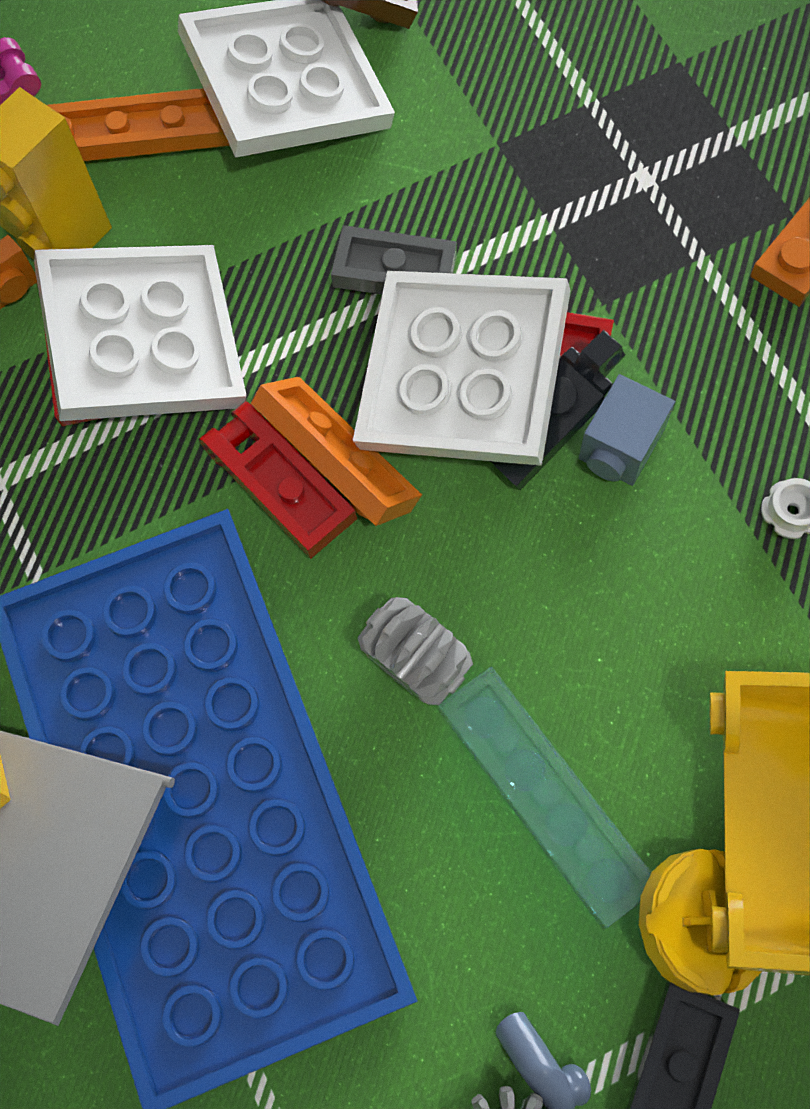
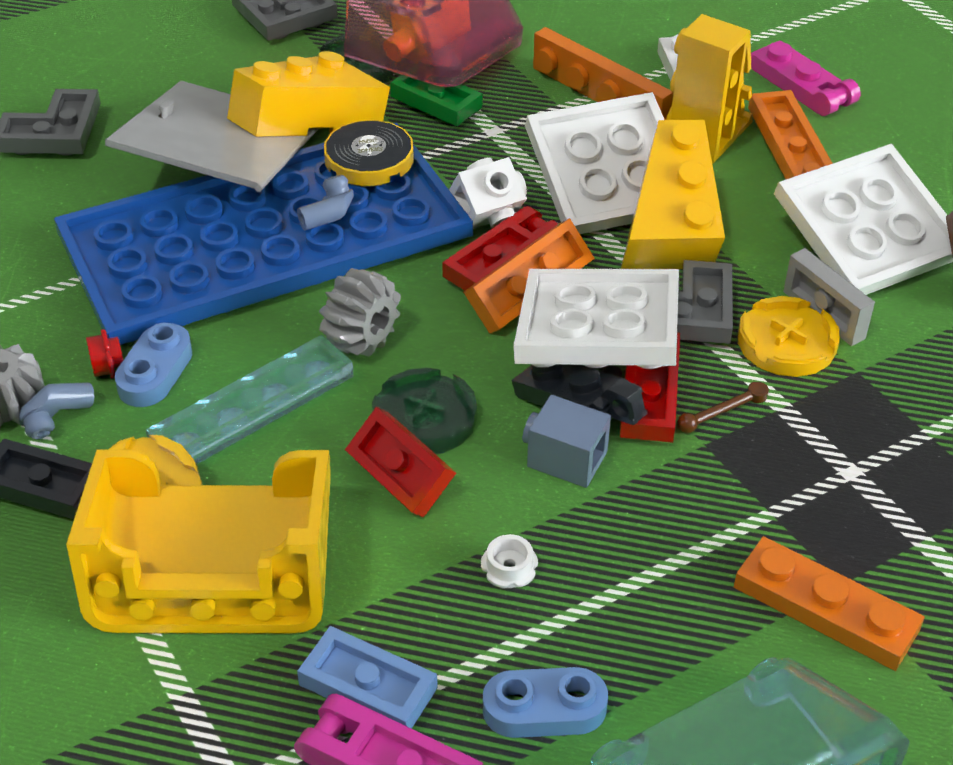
camera: 80 degrees right, 25 degrees down
(69, 636) = (369, 152): none -> tile
(181, 480) = (490, 191): none -> white brick
(190, 686) = (331, 207): none -> sand blue arm
(239, 258) = (677, 201): none -> yellow wedge
(402, 141) = (827, 290): none -> light grey plate
(445, 1004) = (104, 354): none -> red plate
(447, 194) = (788, 336): none -> yellow tile
(453, 937) = (153, 365): none -> medium blue plate
(530, 243) = (756, 392): none -> reddish brown hinge
(553, 590) = (430, 406): none -> clear green tile
(656, 614) = (400, 462): none -> red plate

